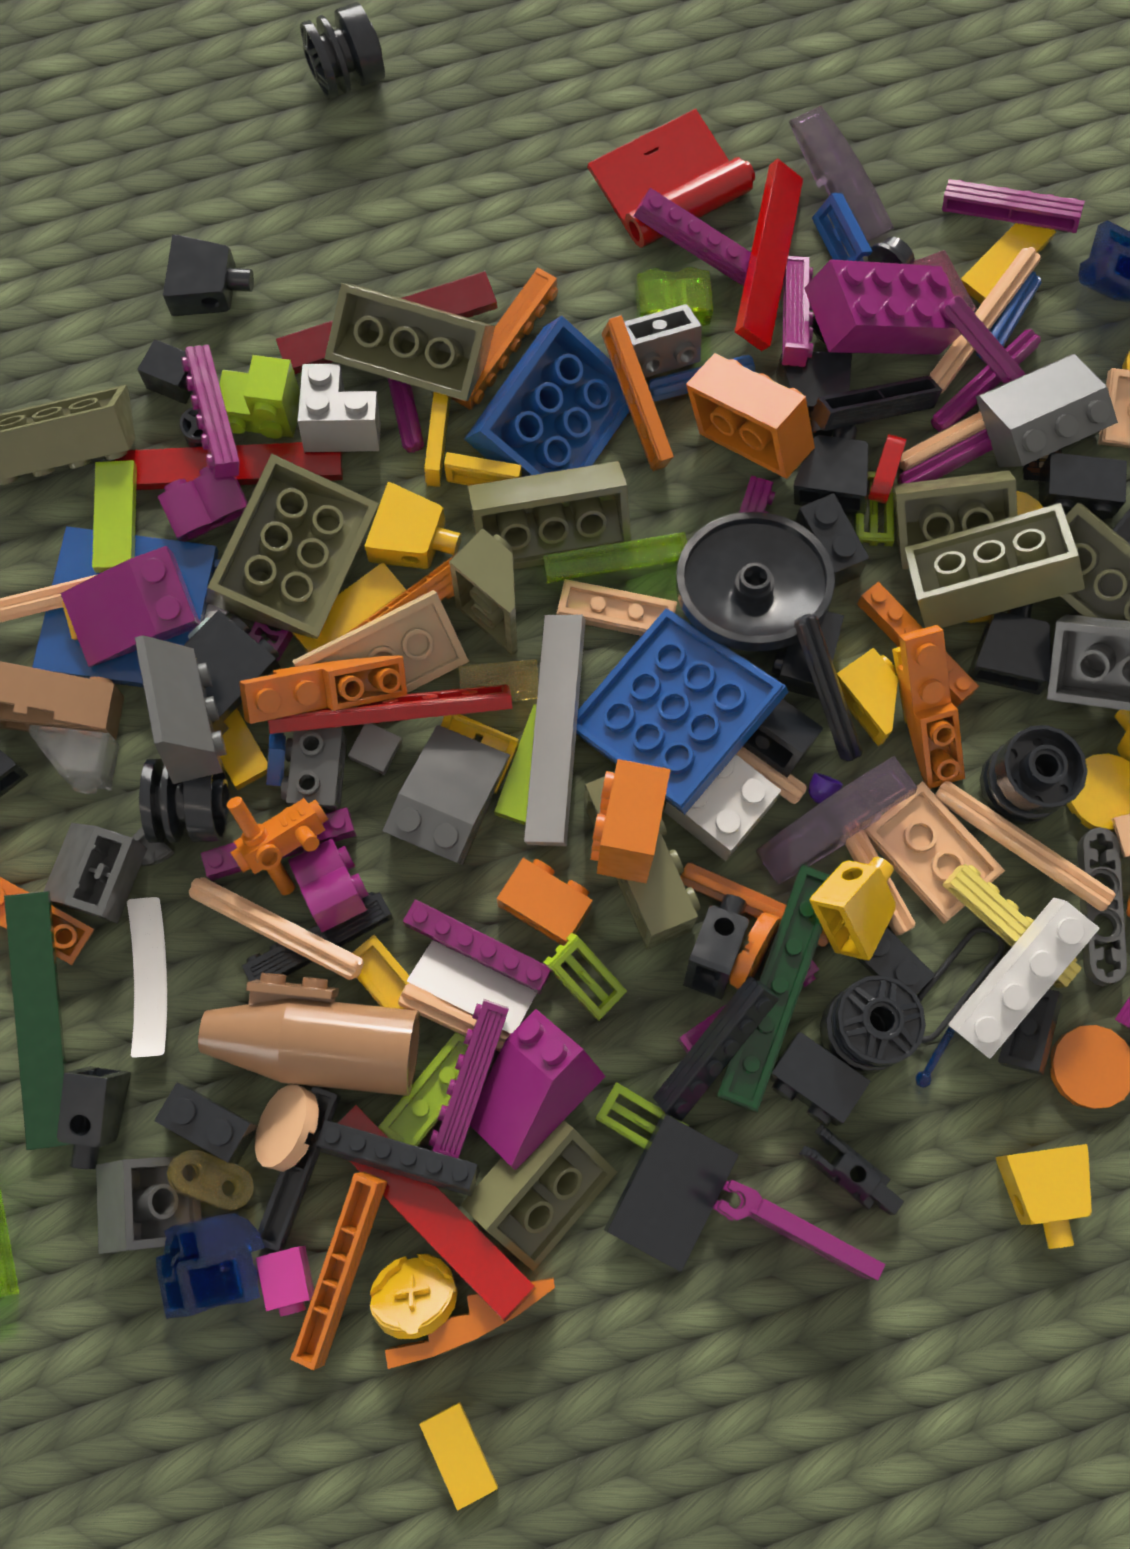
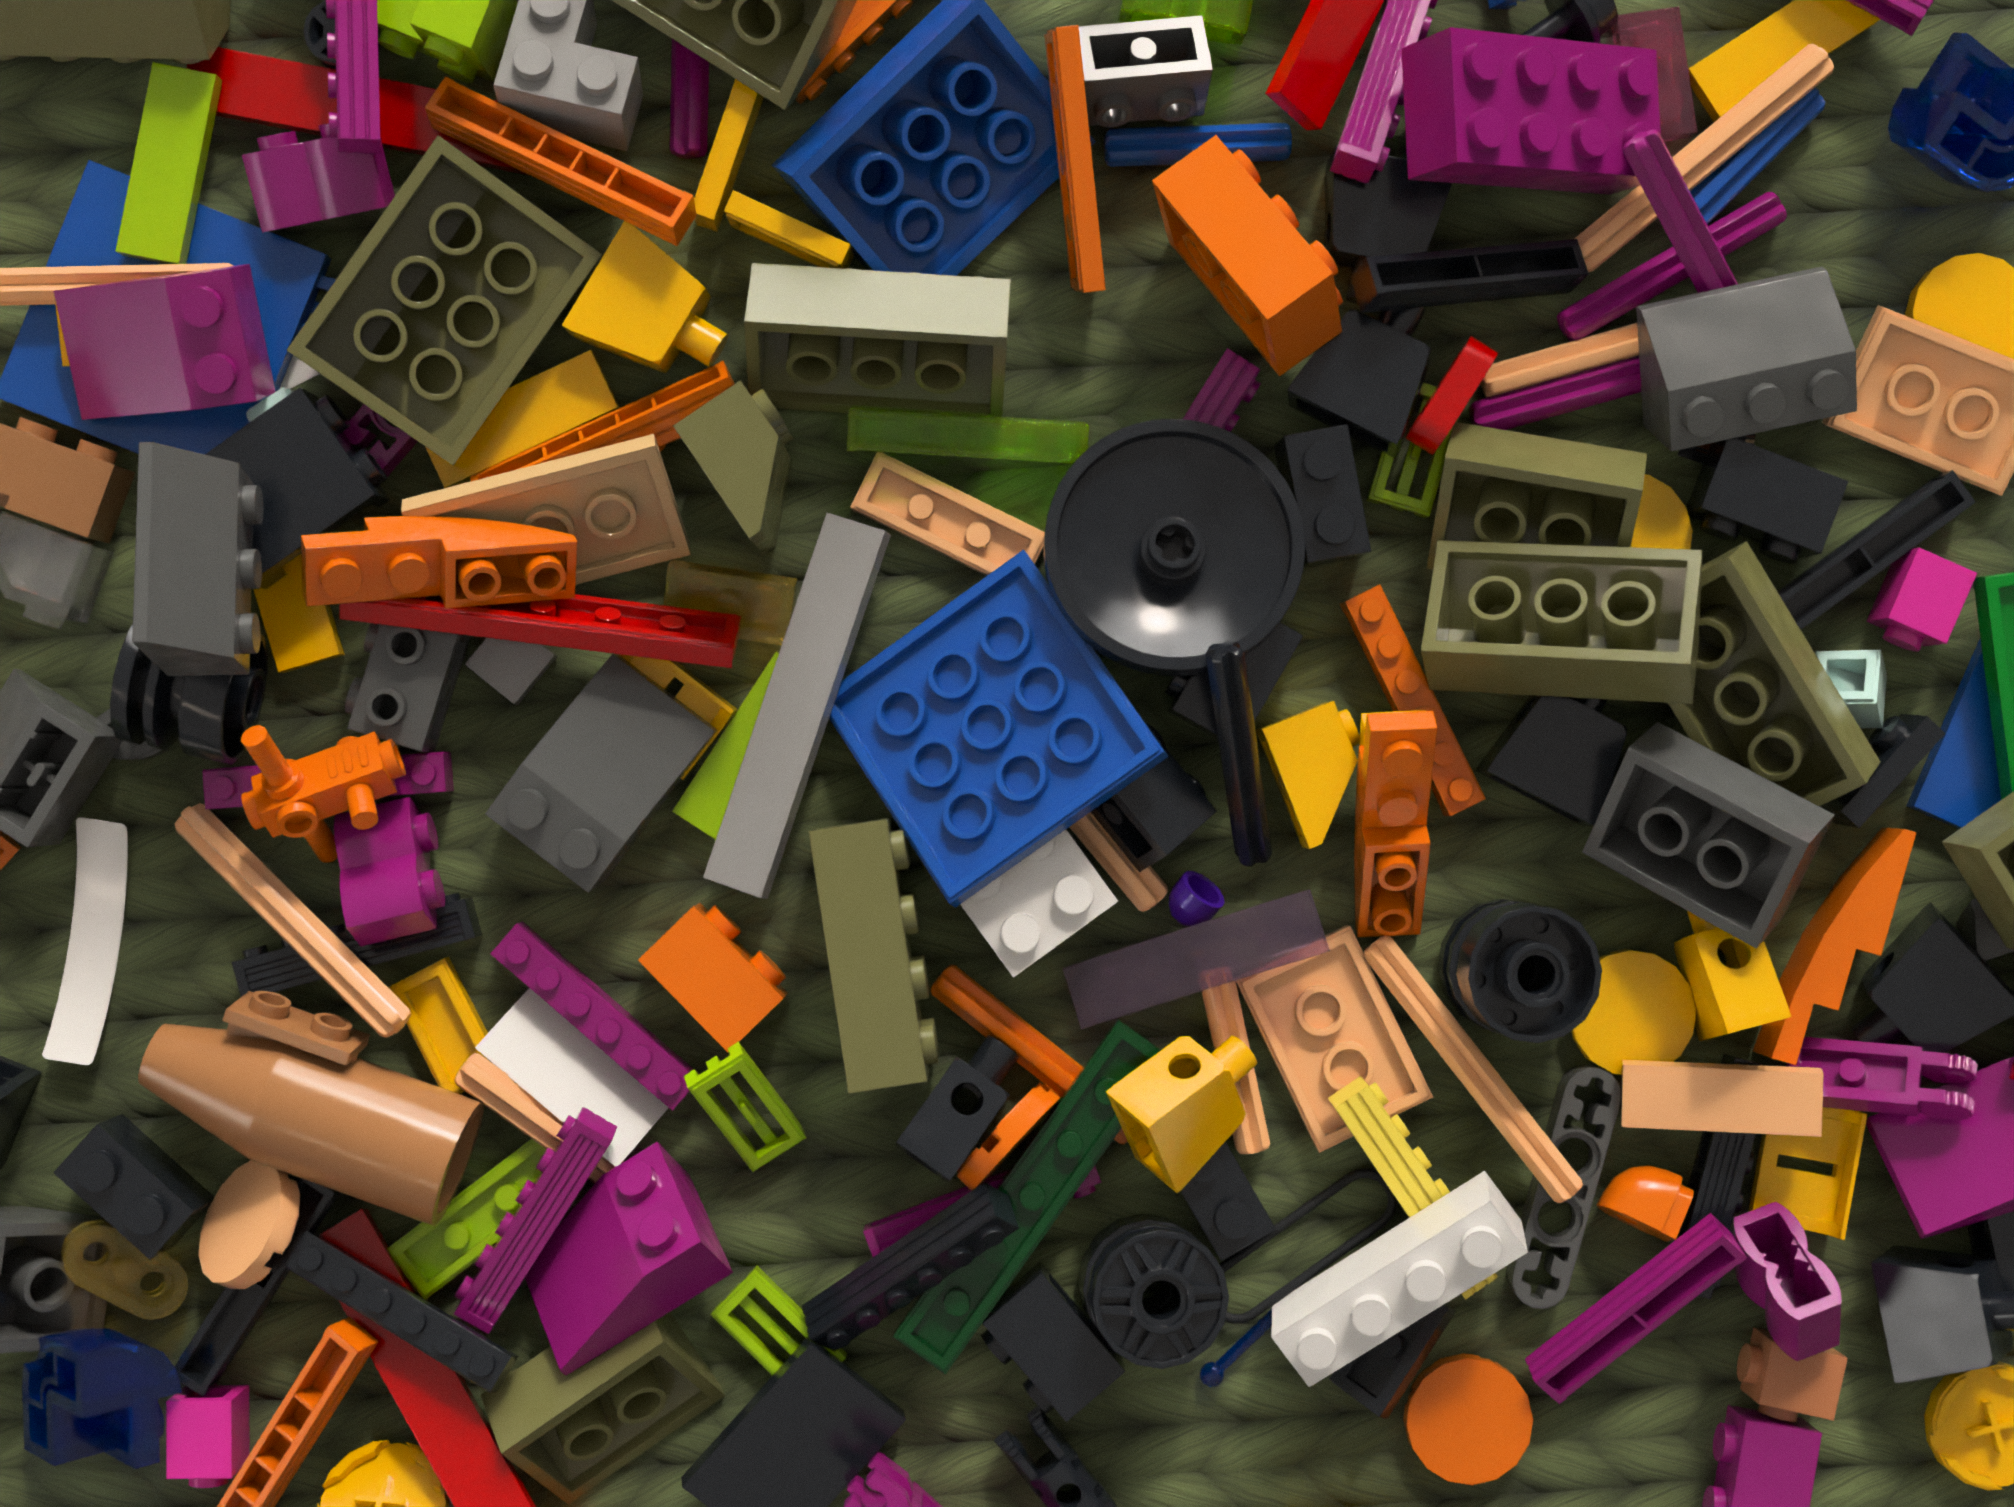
camera: 15 degrees right, 15 degrees up
(276, 759) = (345, 655): blue tile -> none
(346, 457) = (561, 161): none -> orange piece
(629, 820) = (845, 943): orange brick -> none

